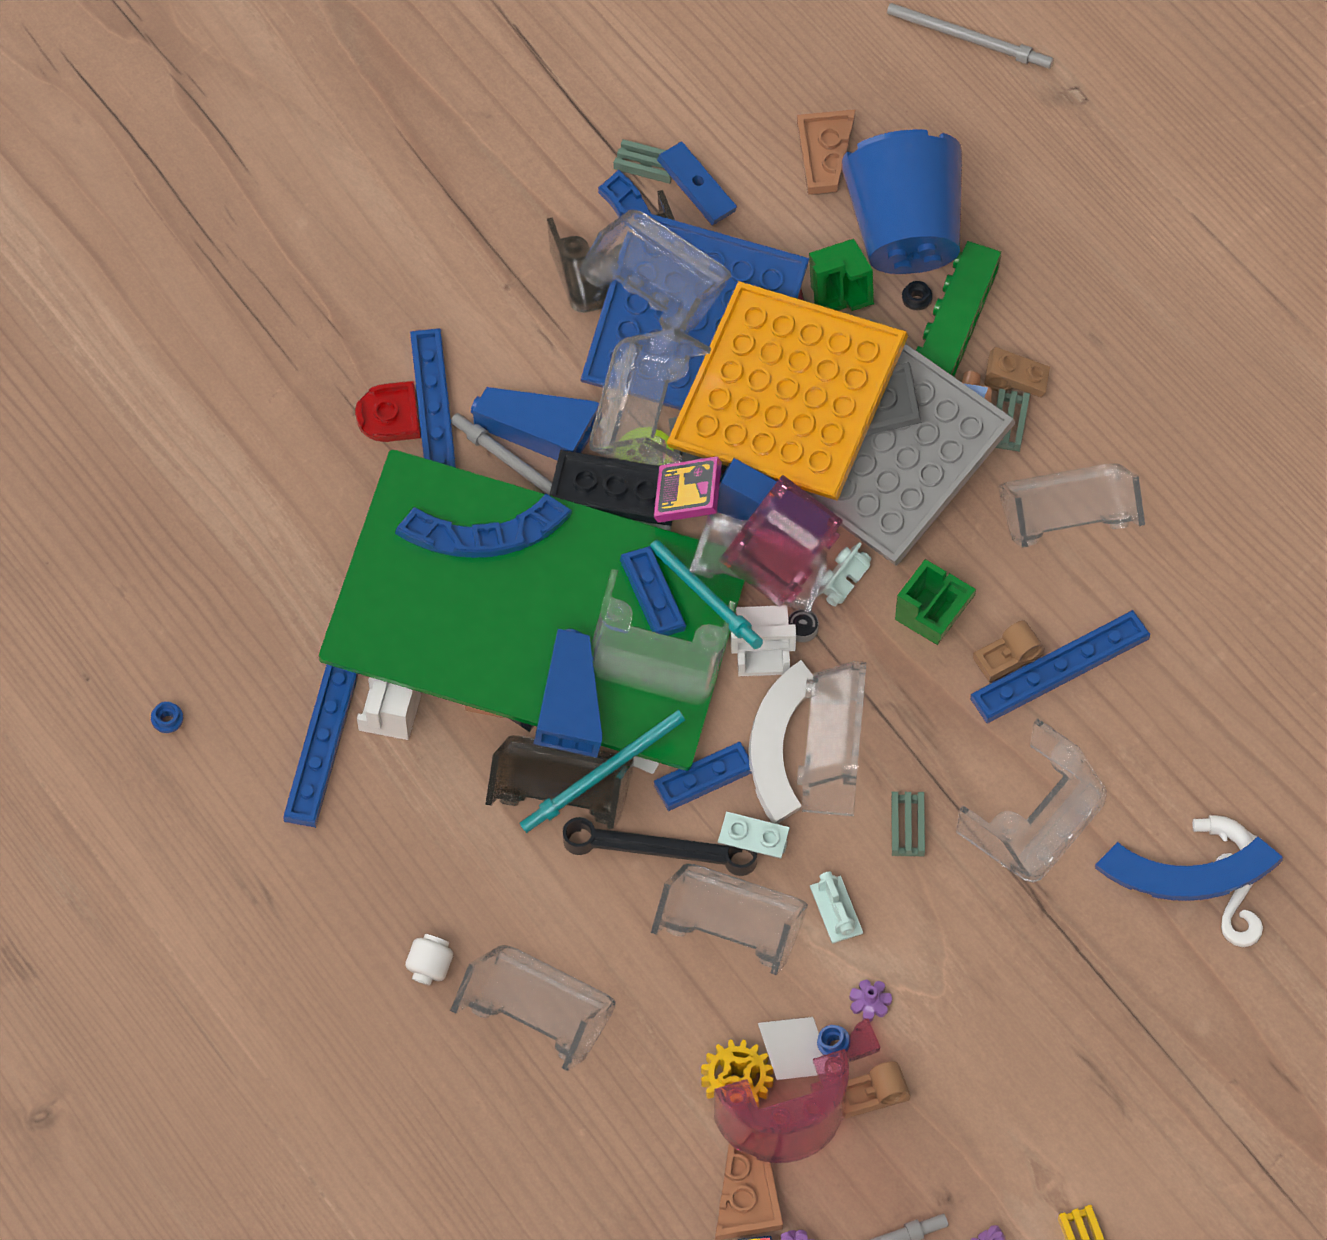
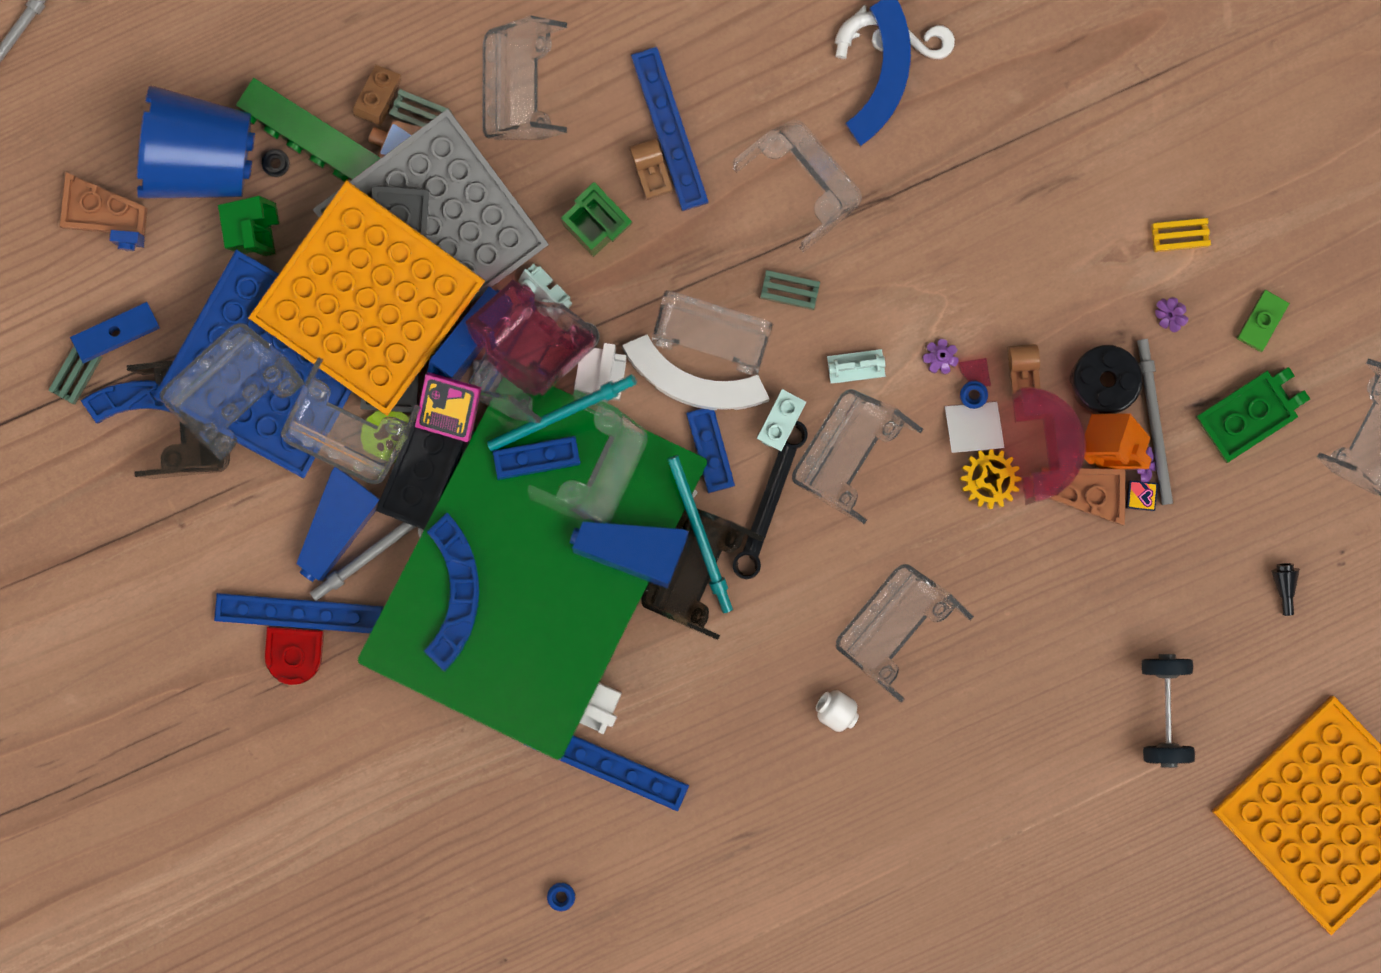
camera: 75 degrees left, 25 degrees up
(798, 177) = (127, 240): none -> blue plate
(810, 1195) = (1116, 442): none -> orange plate
(886, 1206) = (1087, 384): none -> black plate

